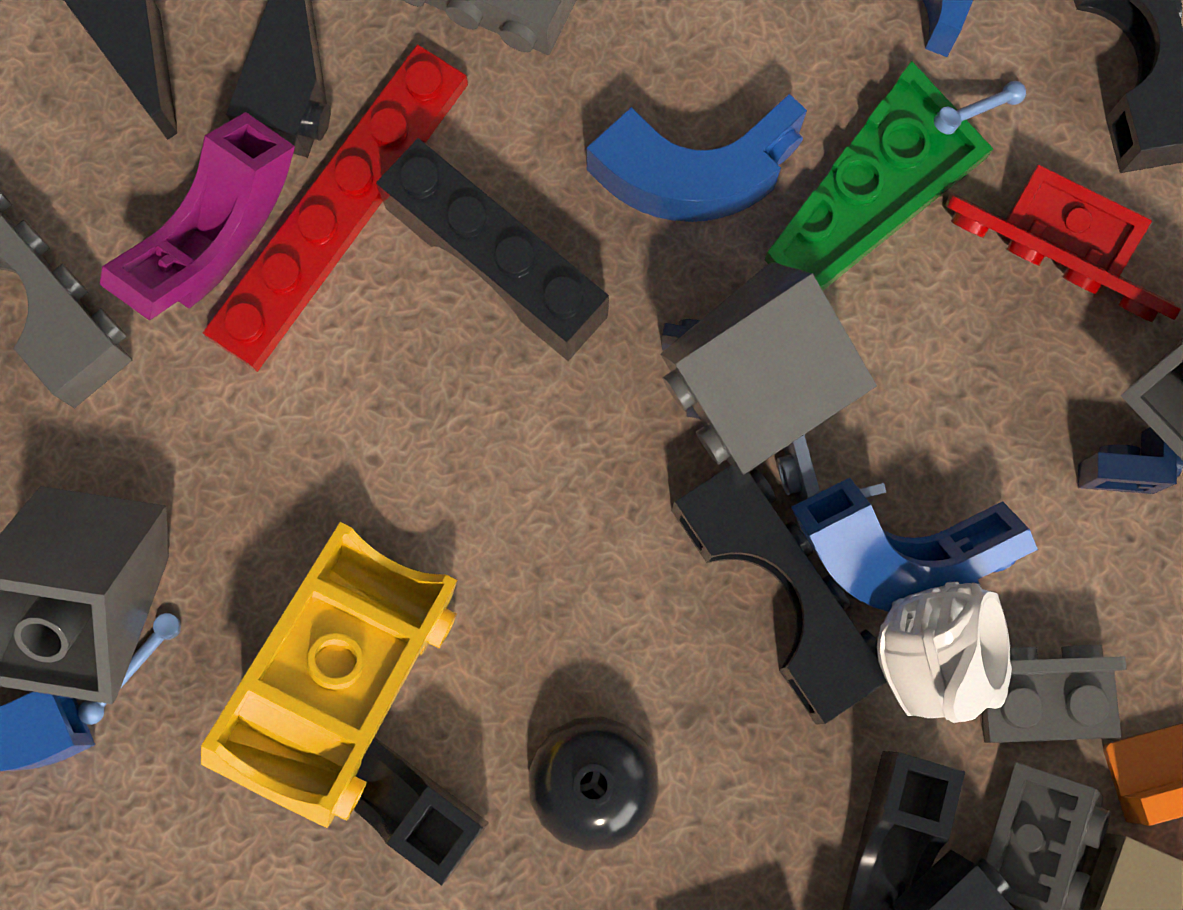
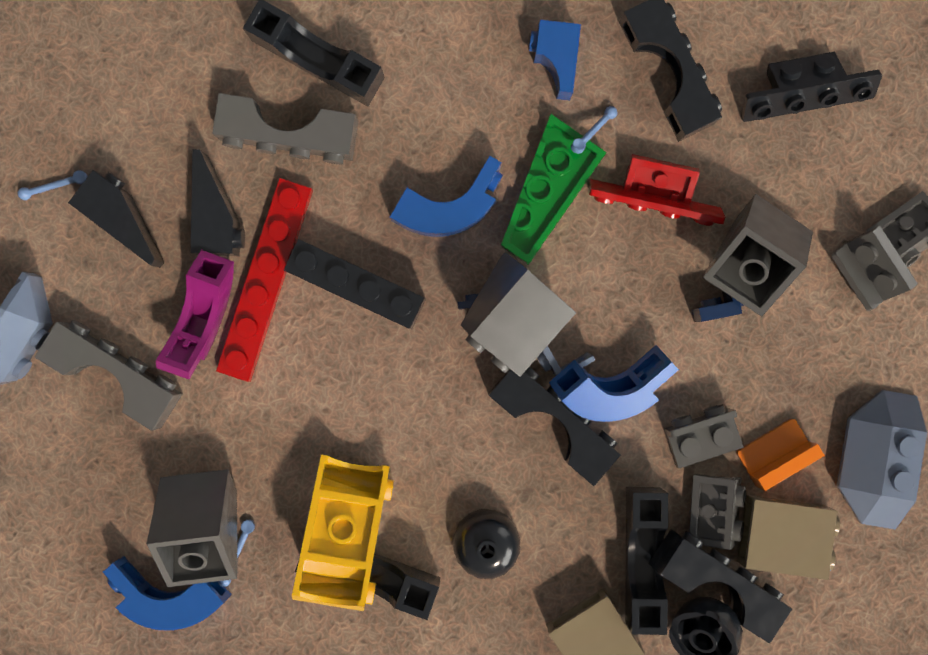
camera: 15 degrees left, 10 degrees up
(946, 652) = (645, 437): white piece -> none

